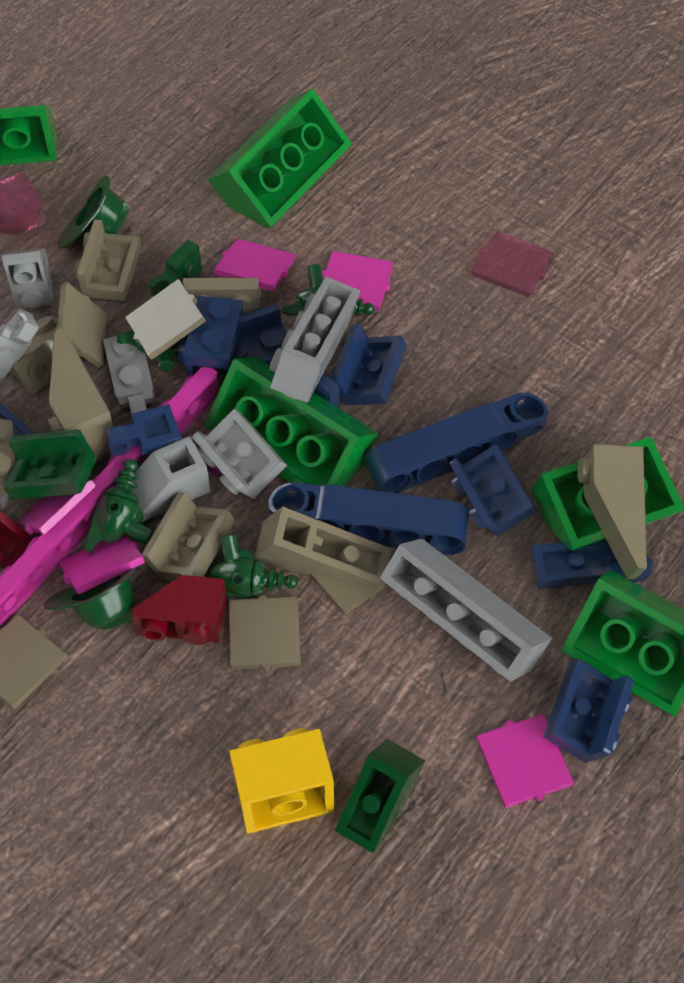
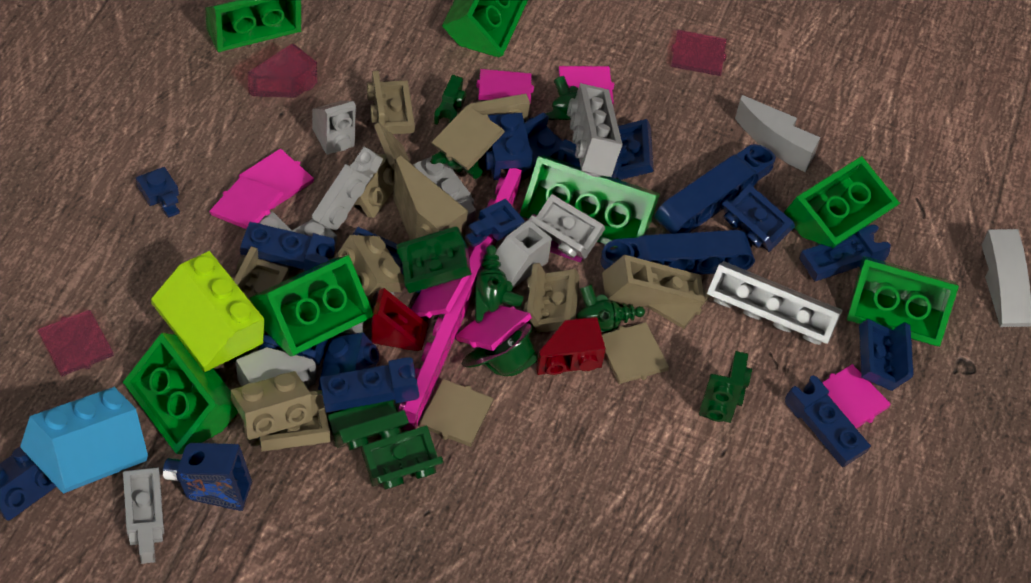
camera: 25 degrees left, 5 degrees down
(100, 205) = (359, 66): dark green piece -> none
(283, 779) = (701, 442): yellow brick -> none
(355, 718) = (727, 392): none -> dark green bracket
(379, 794) = (766, 440): dark green slope -> none
(476, 790) = (827, 421): none -> dark blue plate
(567, 385) = (777, 133): none -> light grey slope
(617, 499) = (858, 204): dark tan slope -> none

